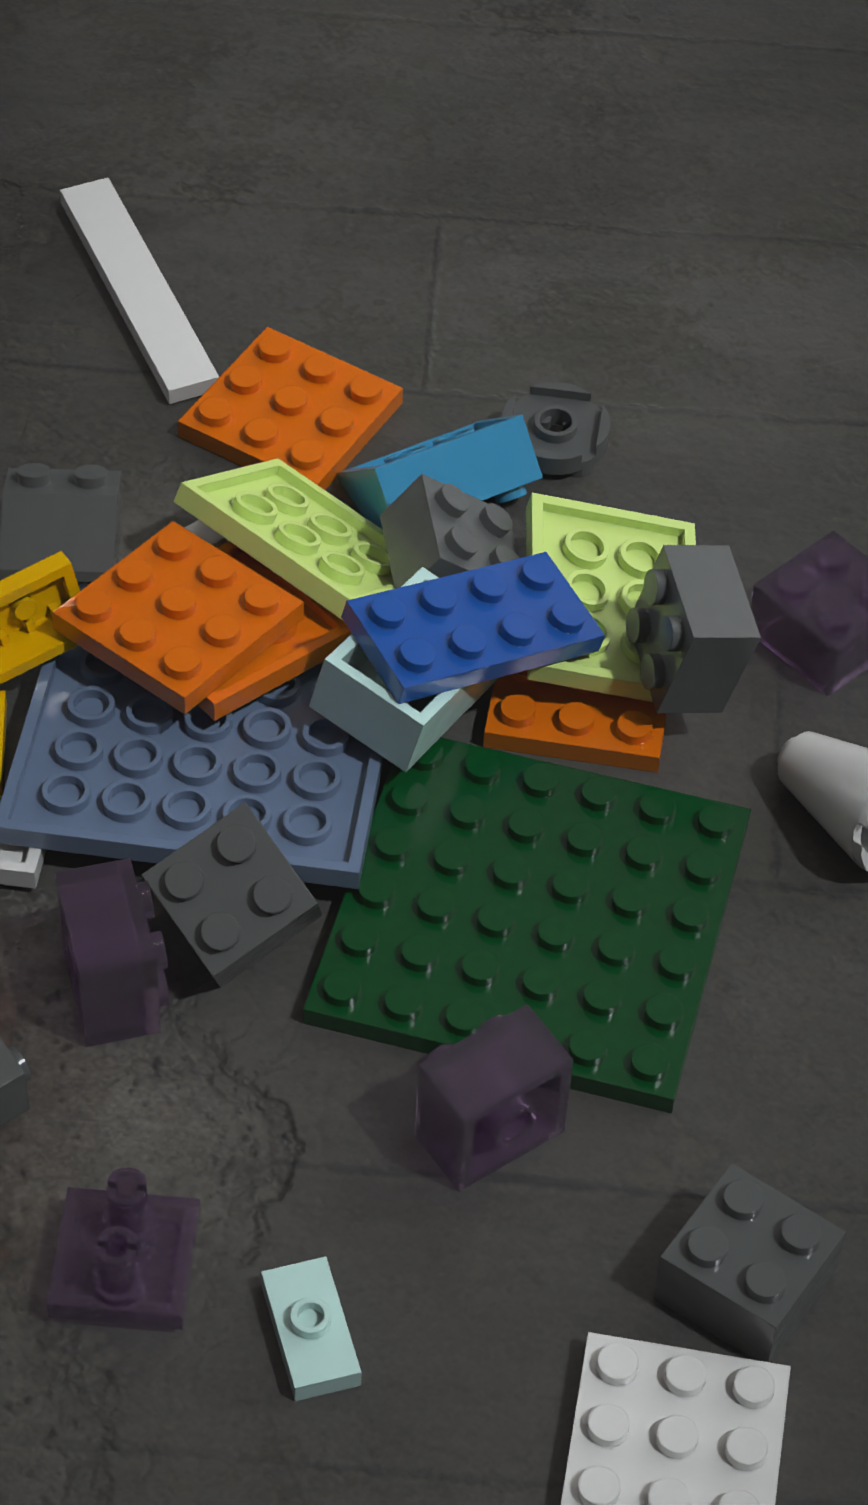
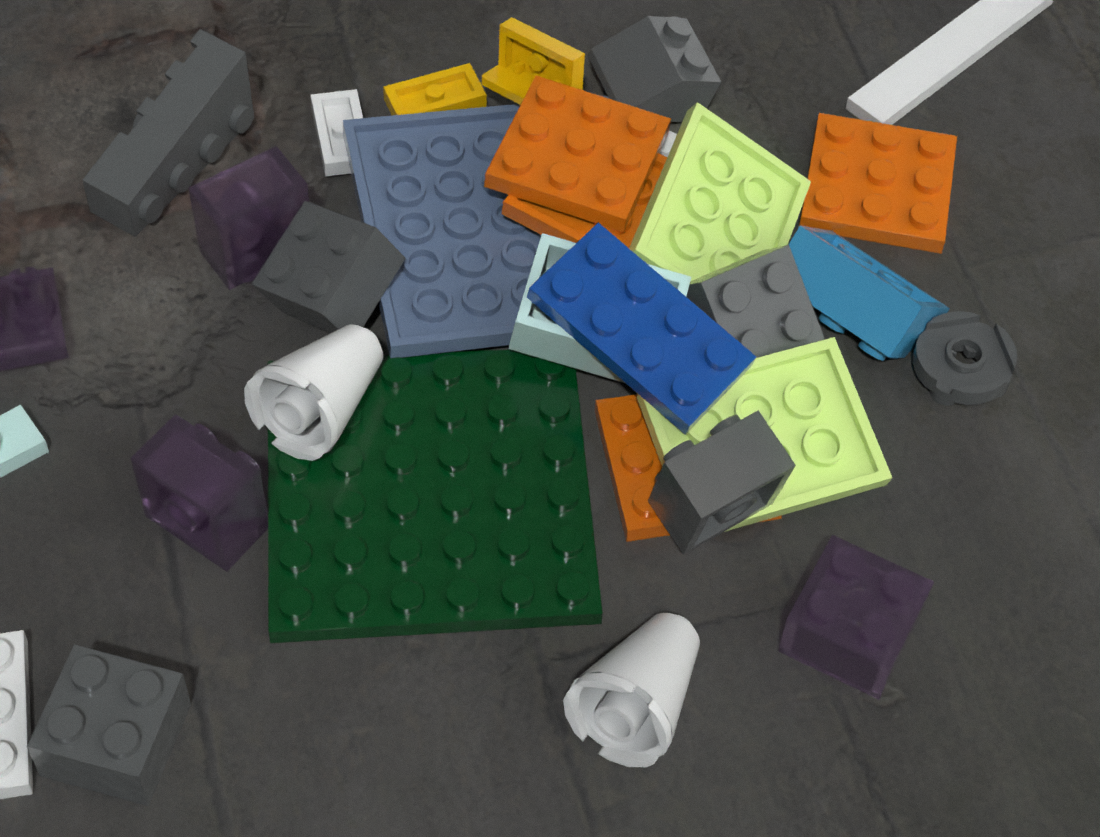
camera: 70 degrees right, 5 degrees up
(412, 945) = (314, 391): none -> white cone

